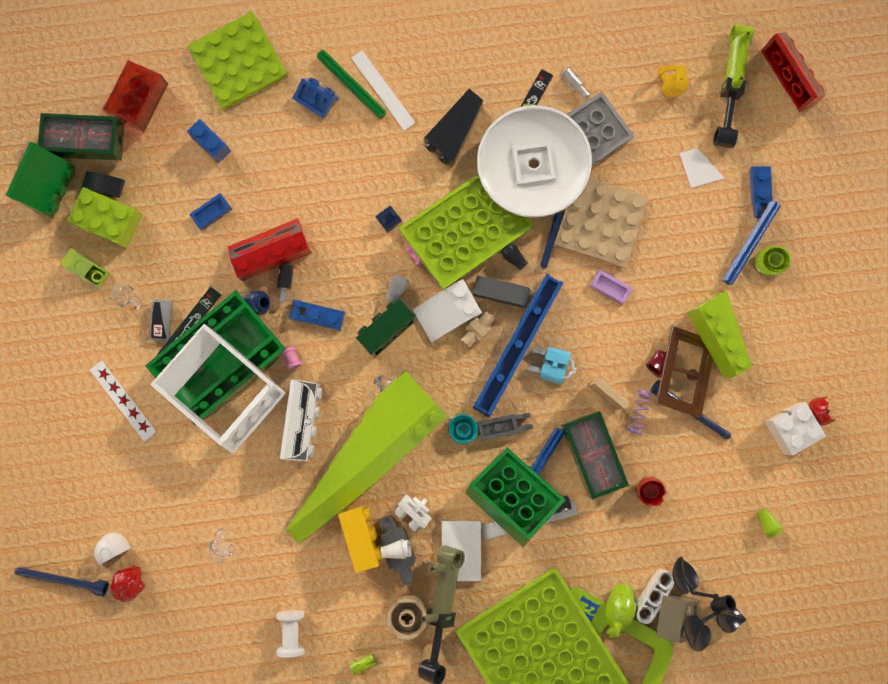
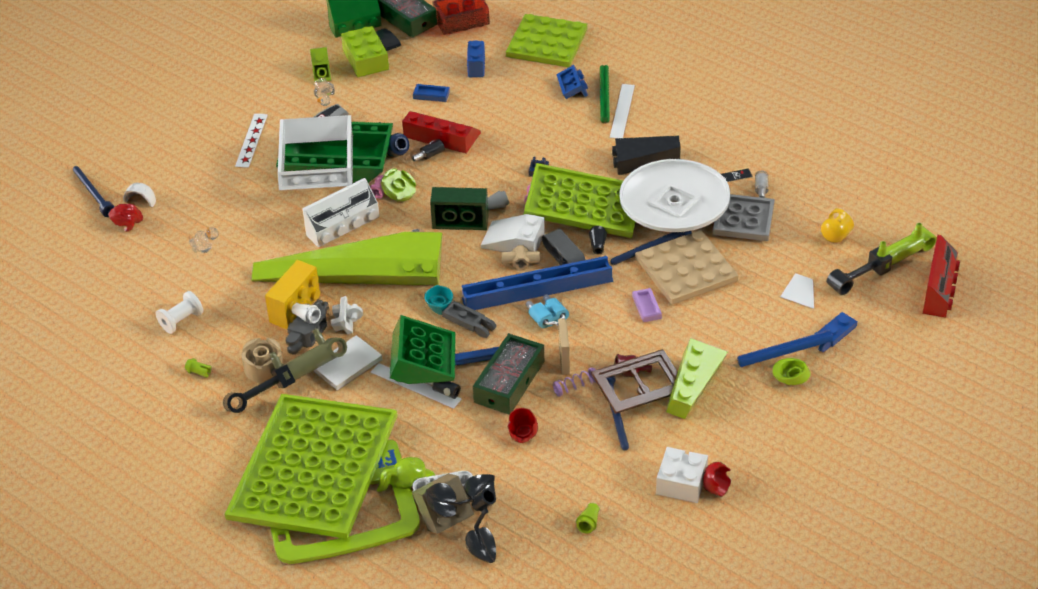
camera: 50 degrees right, 40 degrees down
(305, 344) = (398, 185): none -> lime tile
(317, 315) = (425, 179): blue plate -> none

